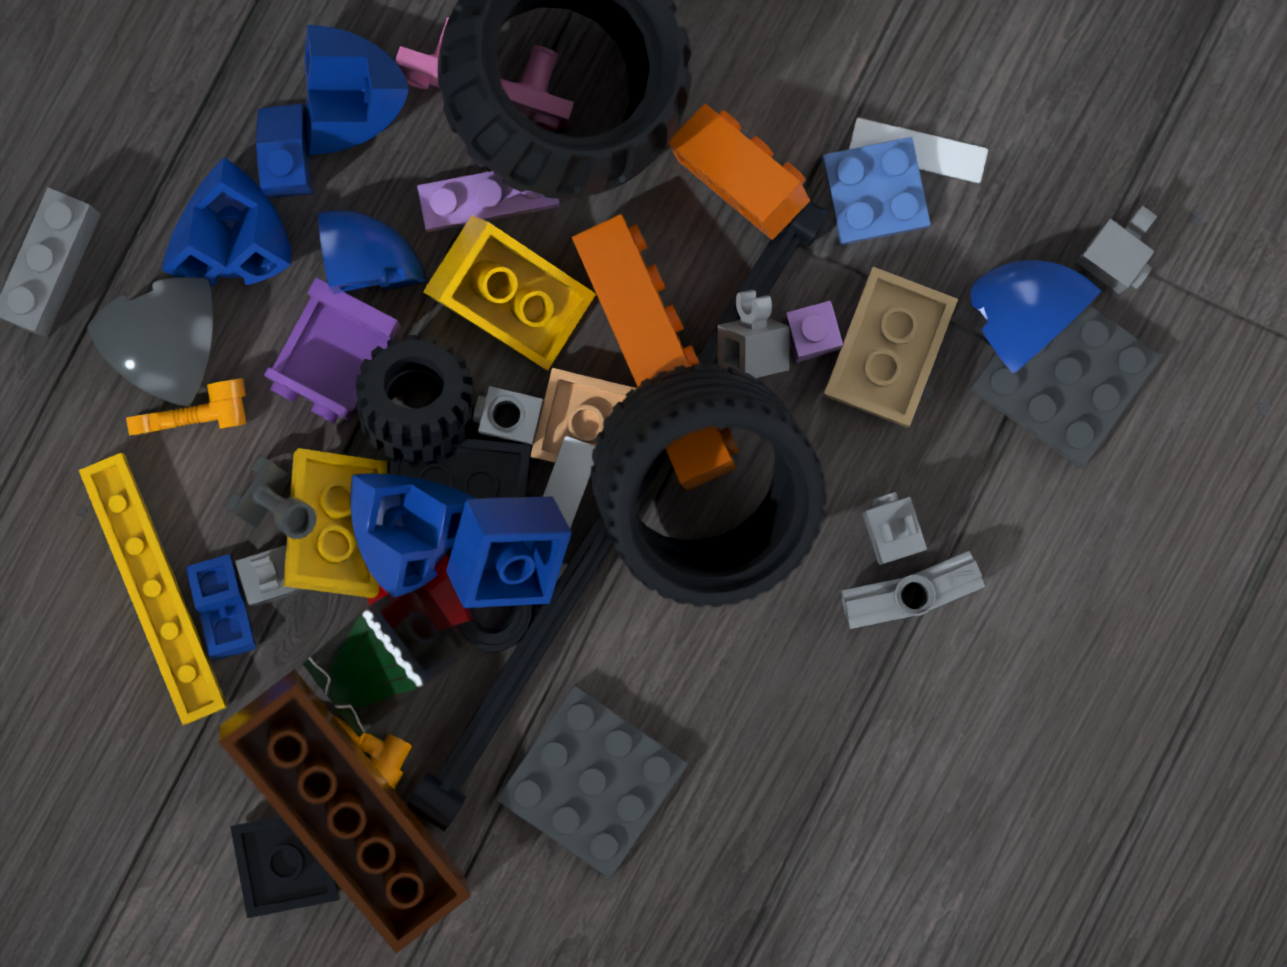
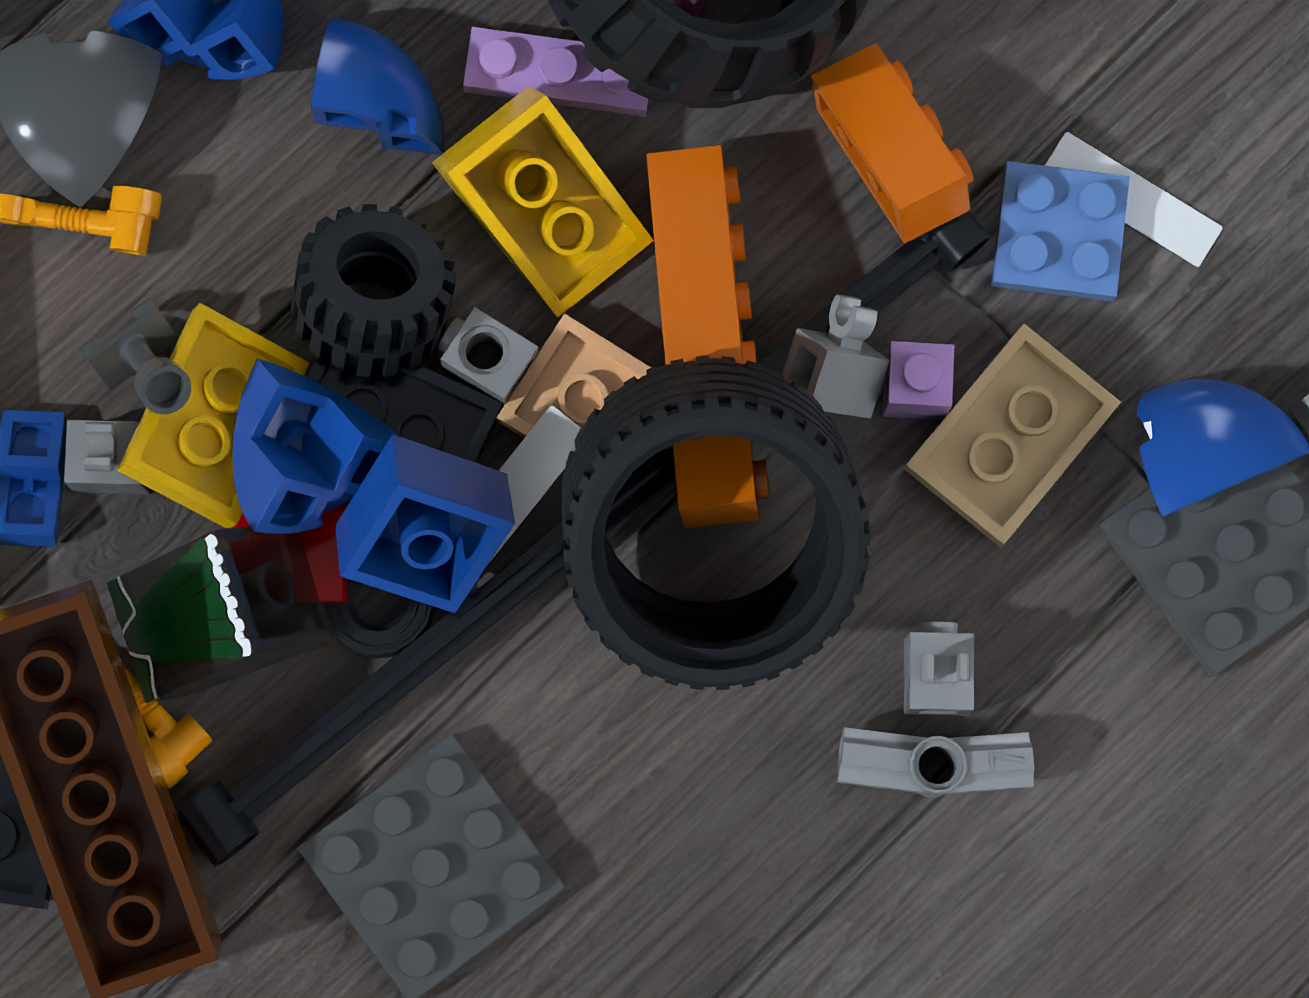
camera: 15 degrees right, 5 degrees down
(328, 351) = (281, 194): medium lavender panel -> none

